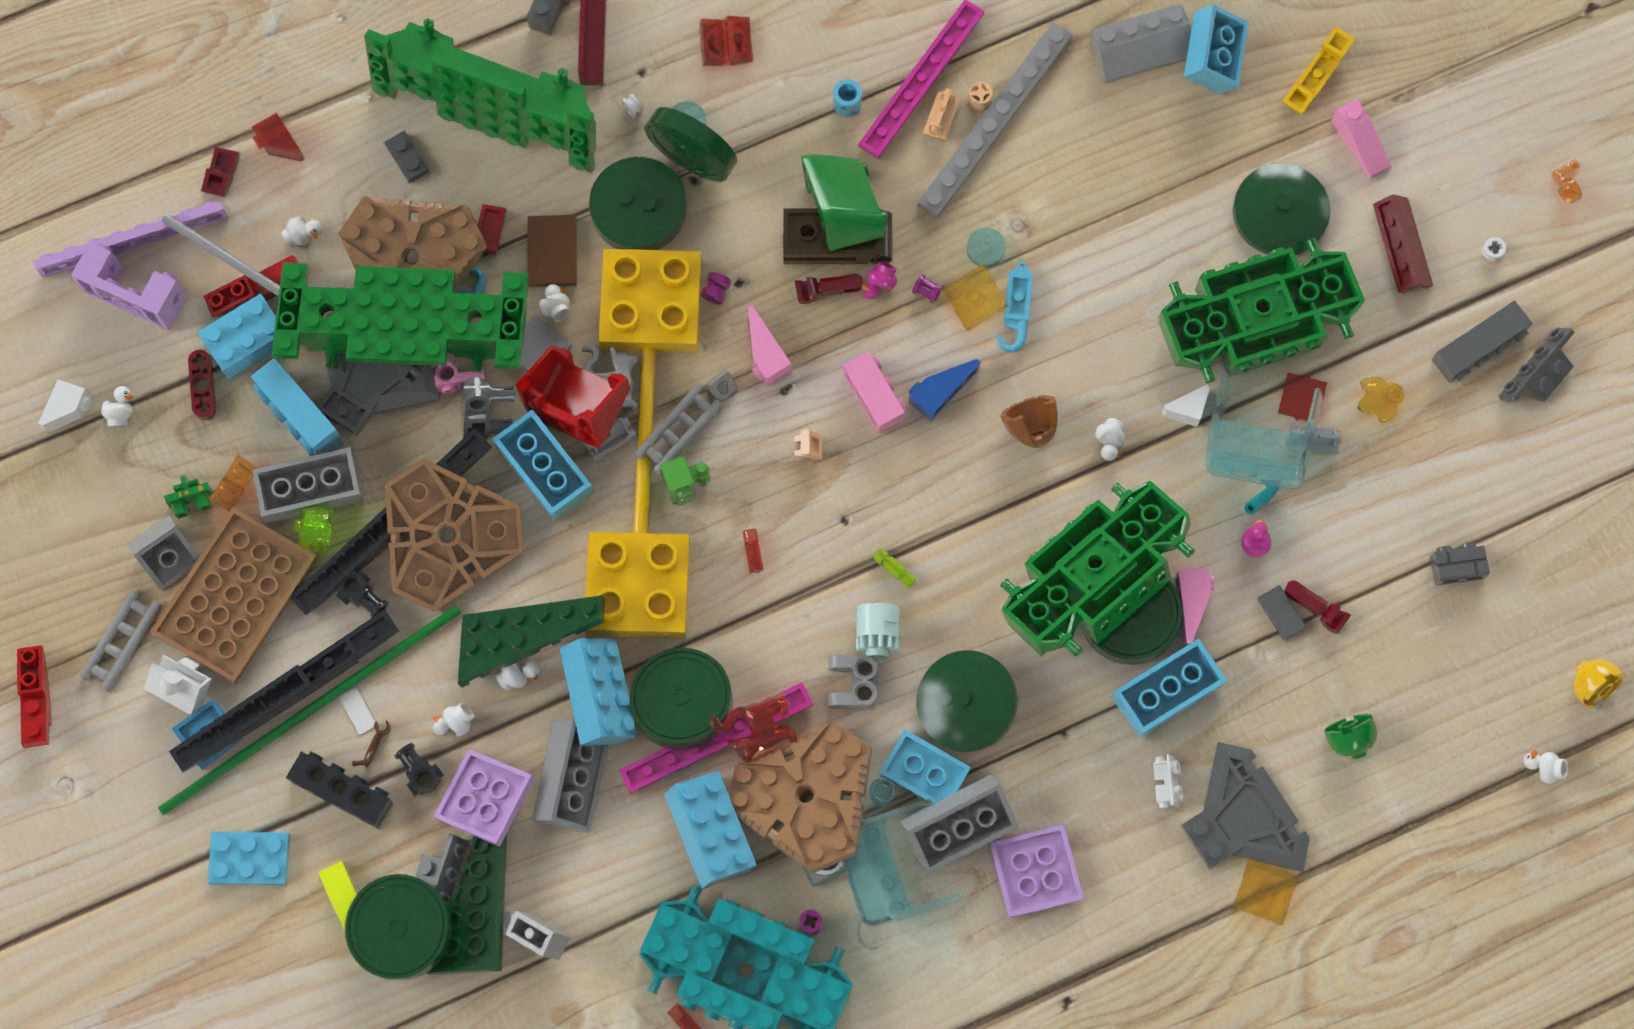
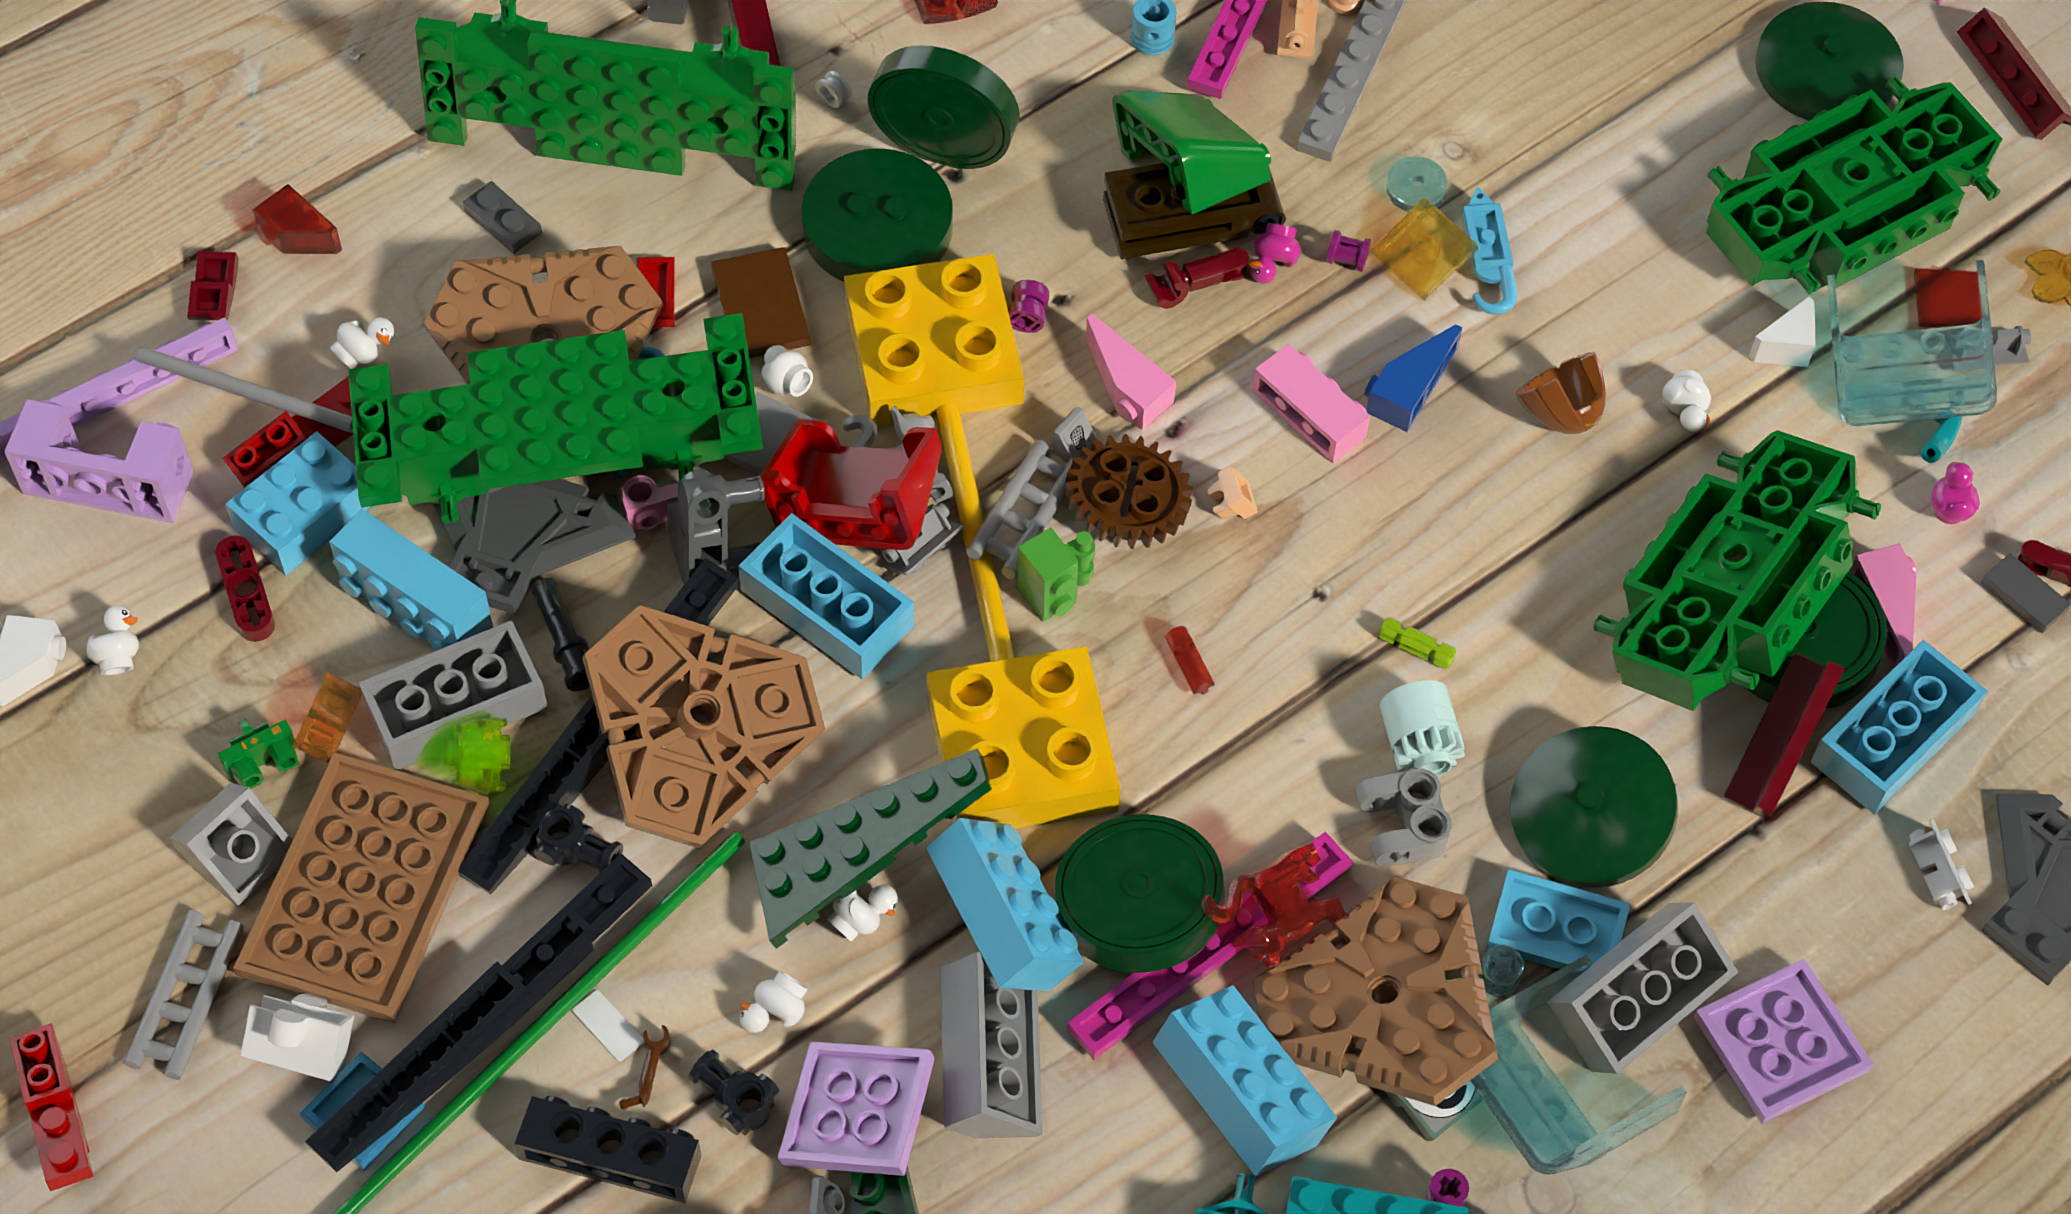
camera: 15 degrees left, 15 degrees down
(384, 466) = (568, 646): none -> black pin
(723, 421) = (1157, 490): none -> reddish brown gear
(1094, 679) = (1782, 735): none -> dark red panel

